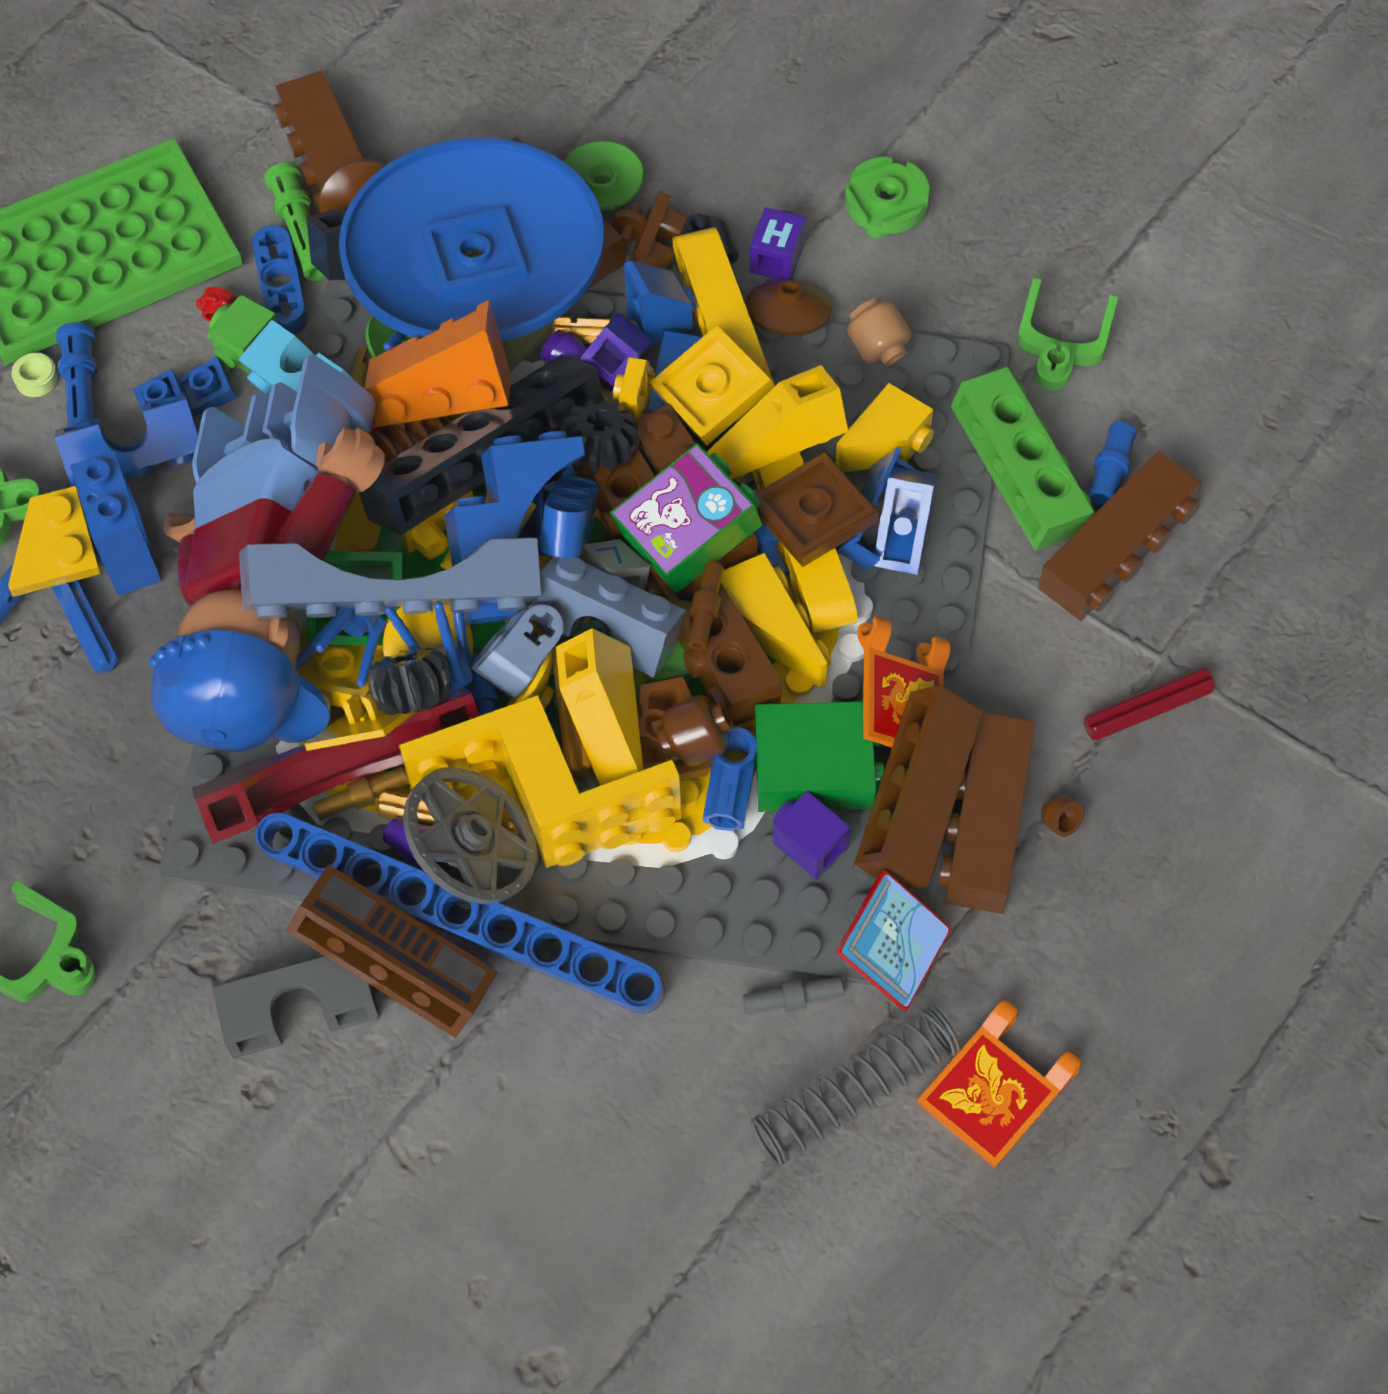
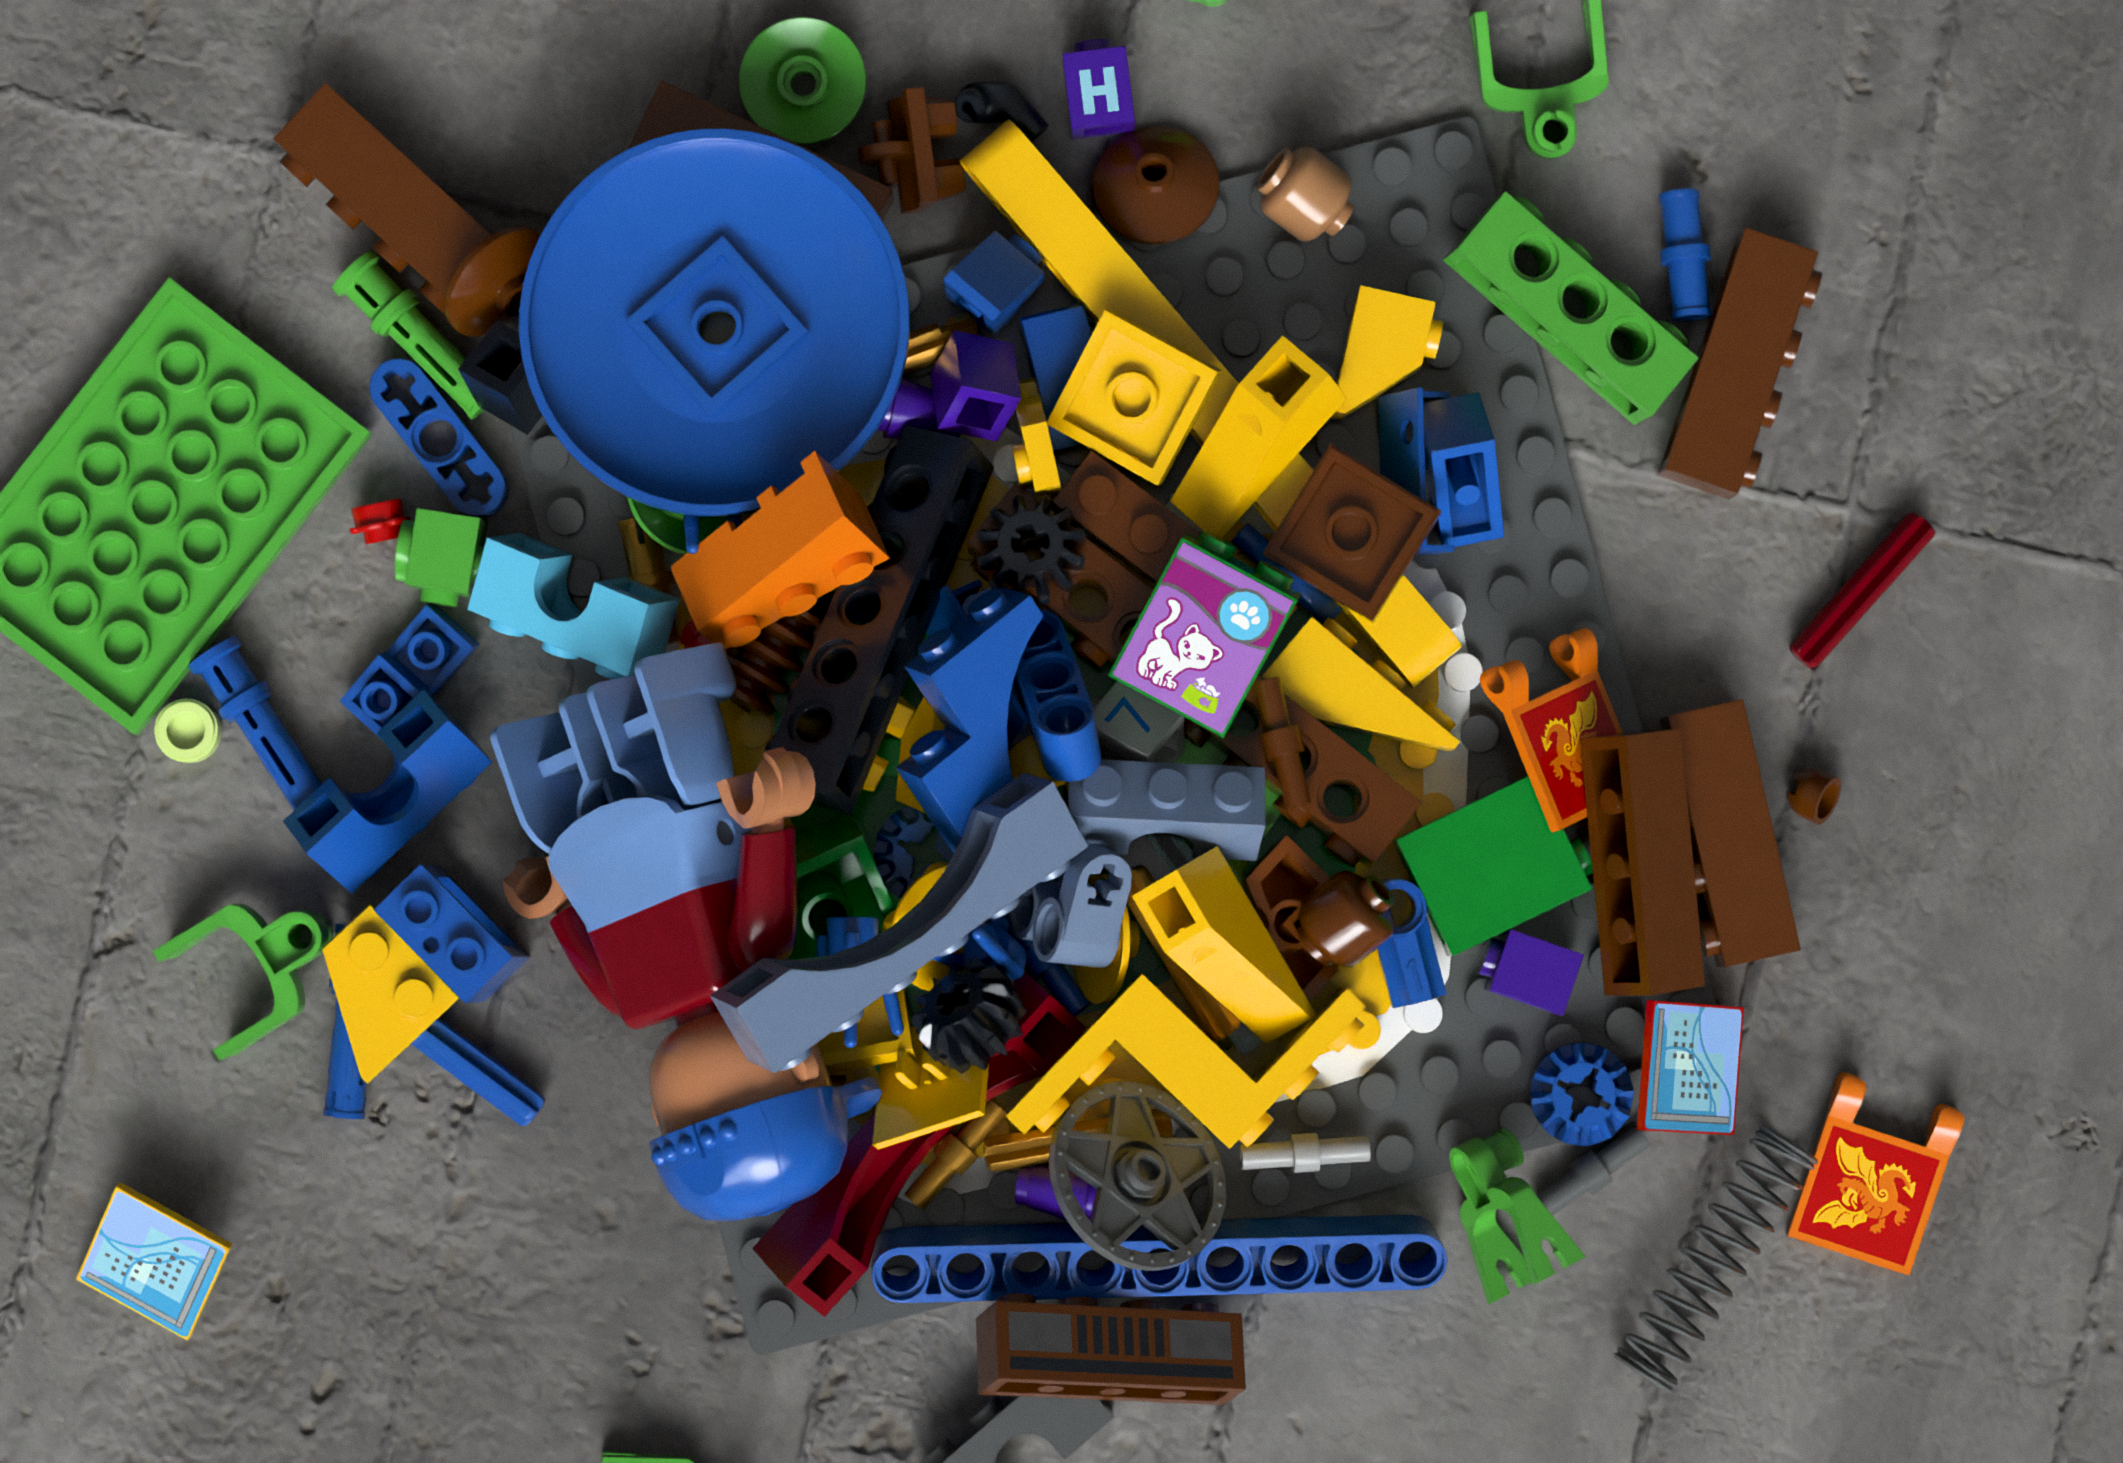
camera: 25 degrees left, 25 degrees up
(596, 890) = (1305, 1152): none -> light grey bar
(720, 969) = (1480, 1172): none -> bright green piece
(808, 954) = (1553, 1105): none -> blue gear

